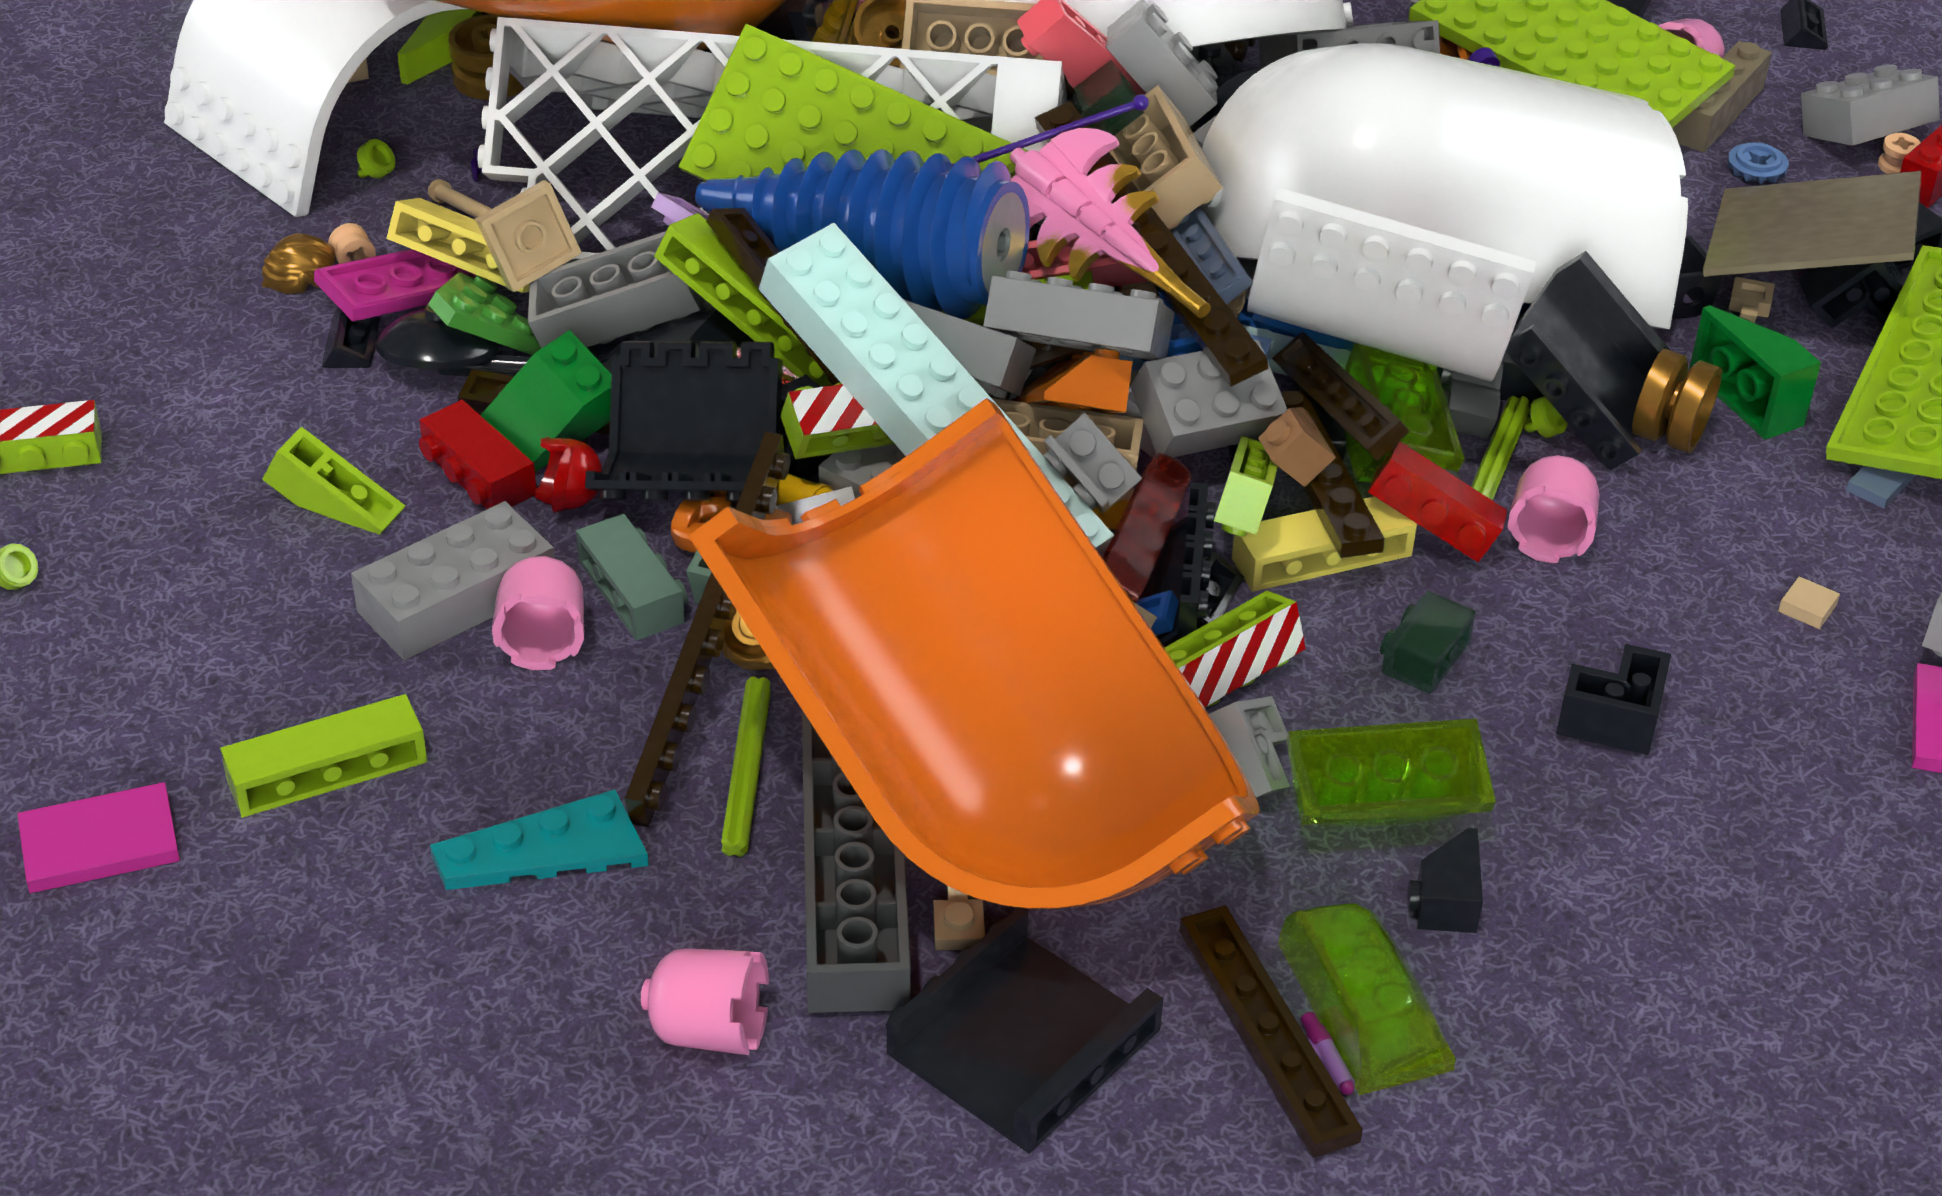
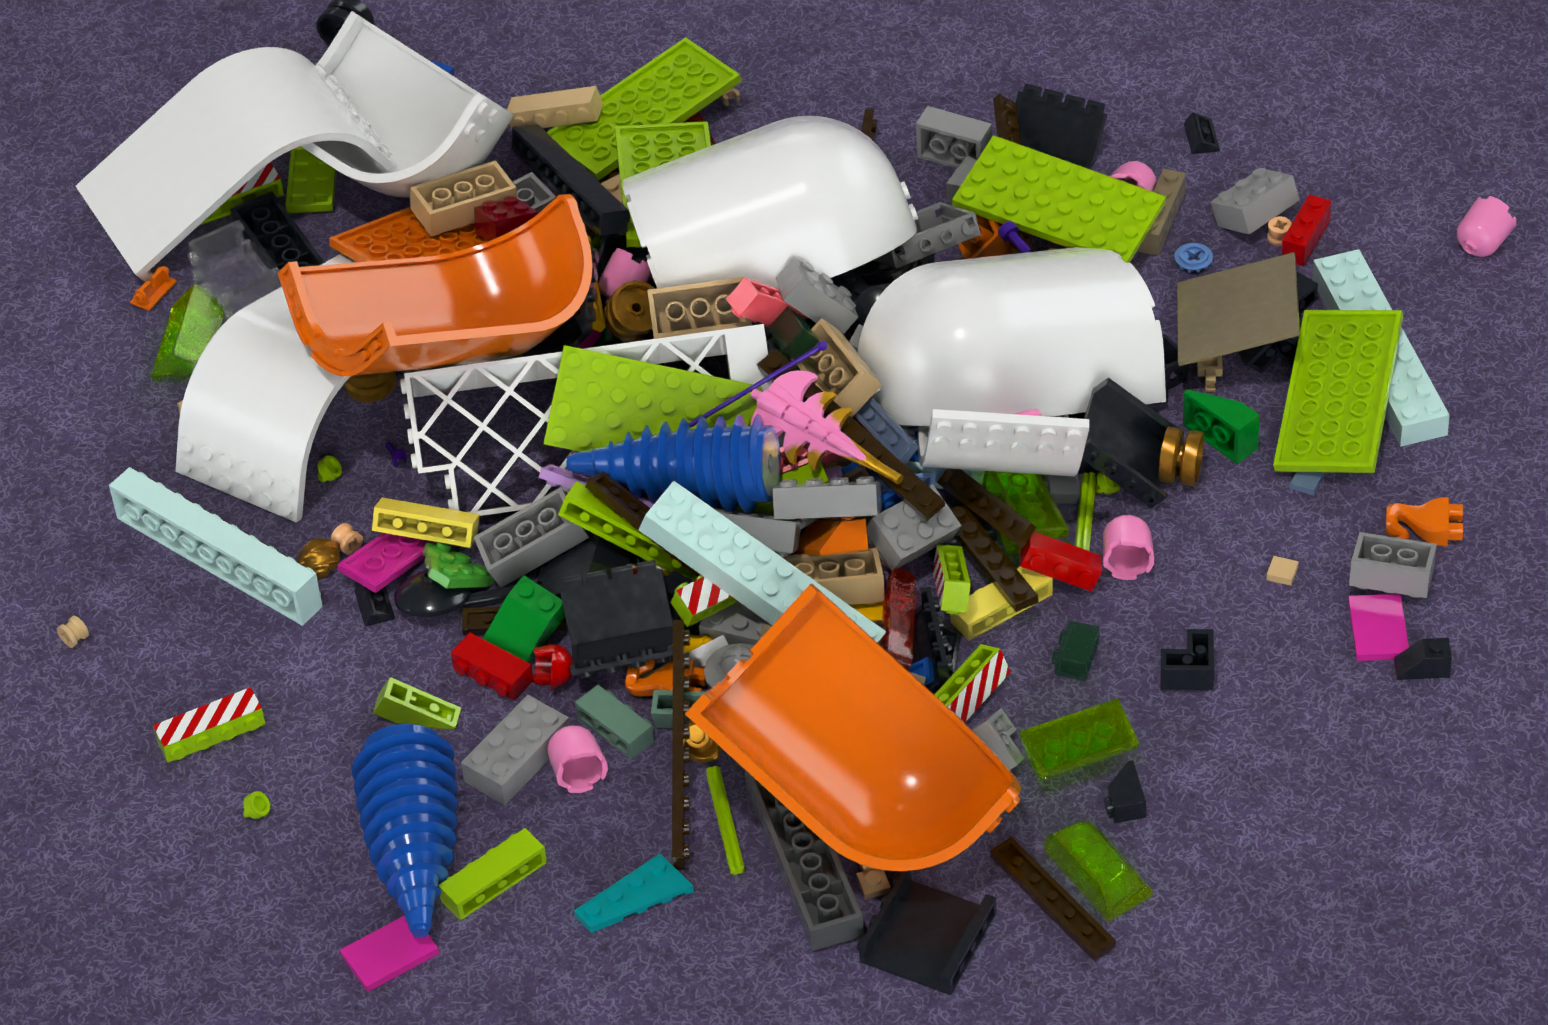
camera: 10 degrees left, 5 degrees up
(158, 215) = (216, 546): none -> light aqua brick
(219, 627) = (408, 815): none -> blue cone
(523, 234) = (466, 516): tan tile -> none
(708, 999) = (760, 958): bright pink cylinder -> none
(1092, 464) = (859, 587): light grey bracket -> none
(1297, 445) = (973, 547): medium nougat slope -> none
(1327, 1052) = (1086, 903): piece -> none

